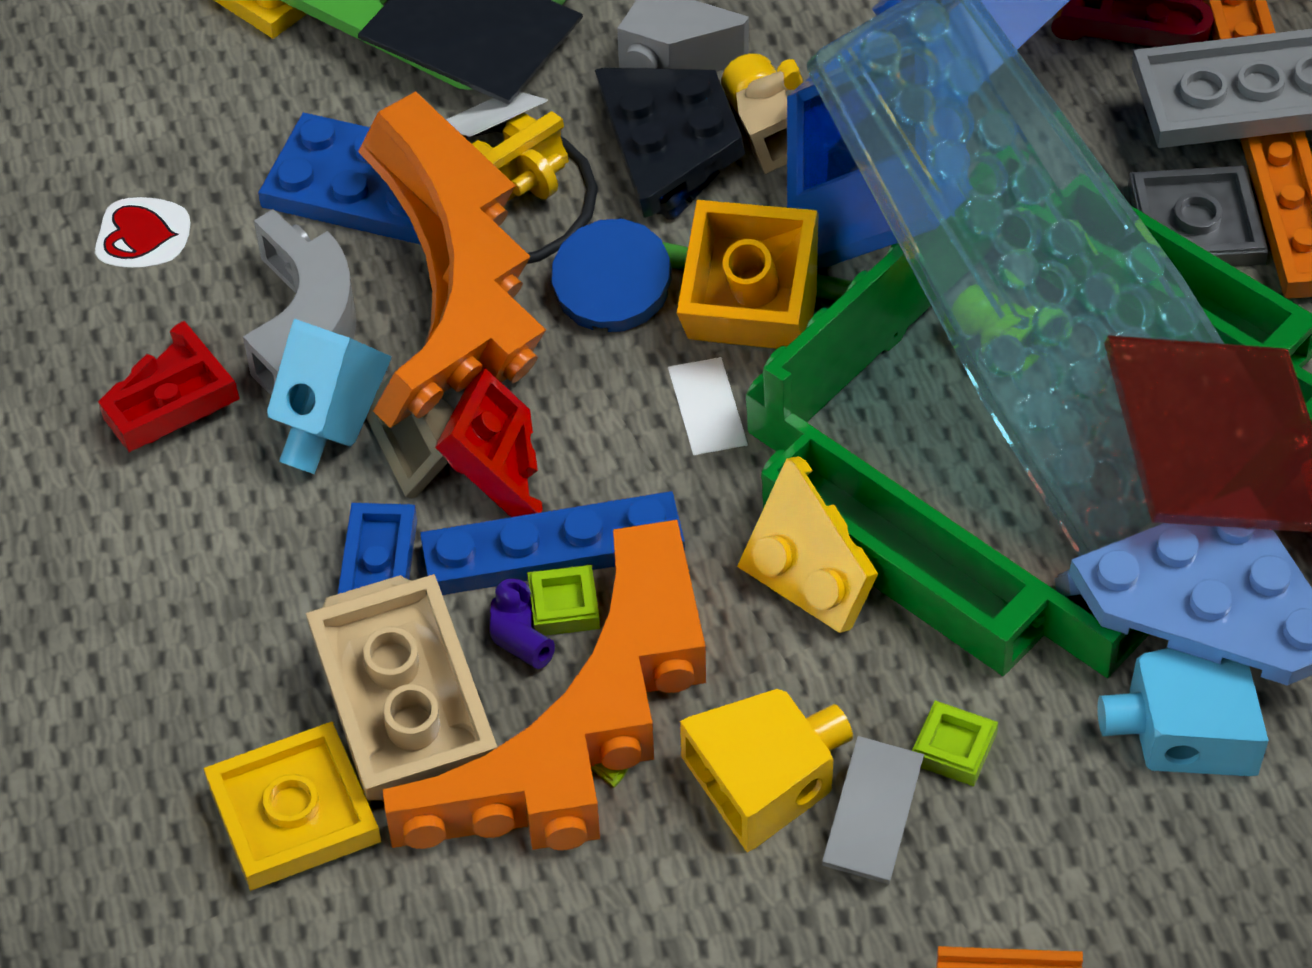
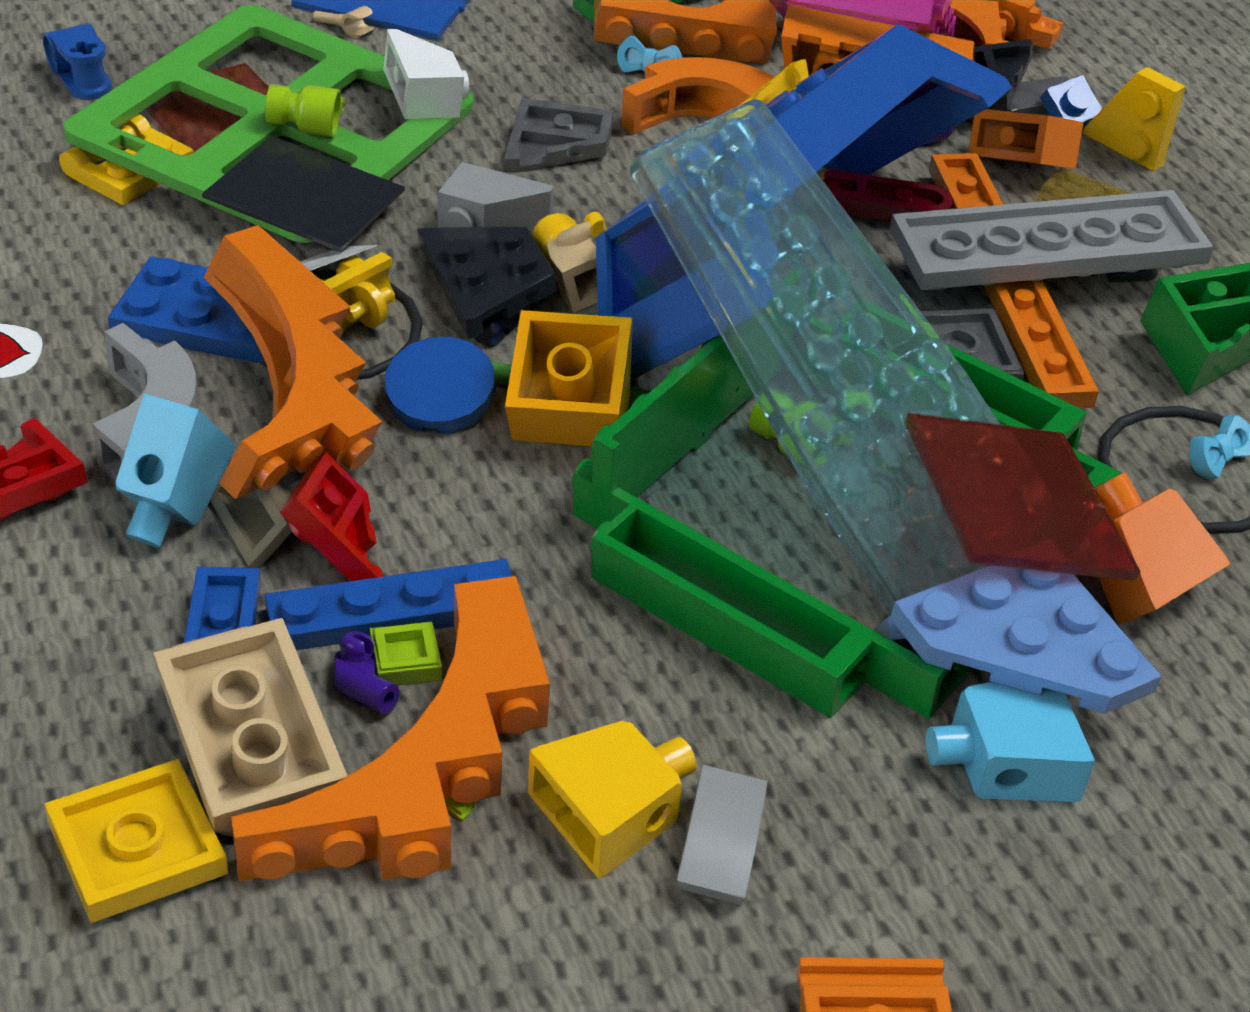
camera: 10 degrees left, 10 degrees down
(707, 406) = (533, 493): white sticker -> none
(807, 551) = (639, 605): yellow wing -> none
(955, 742) = (794, 774): lime tile -> none

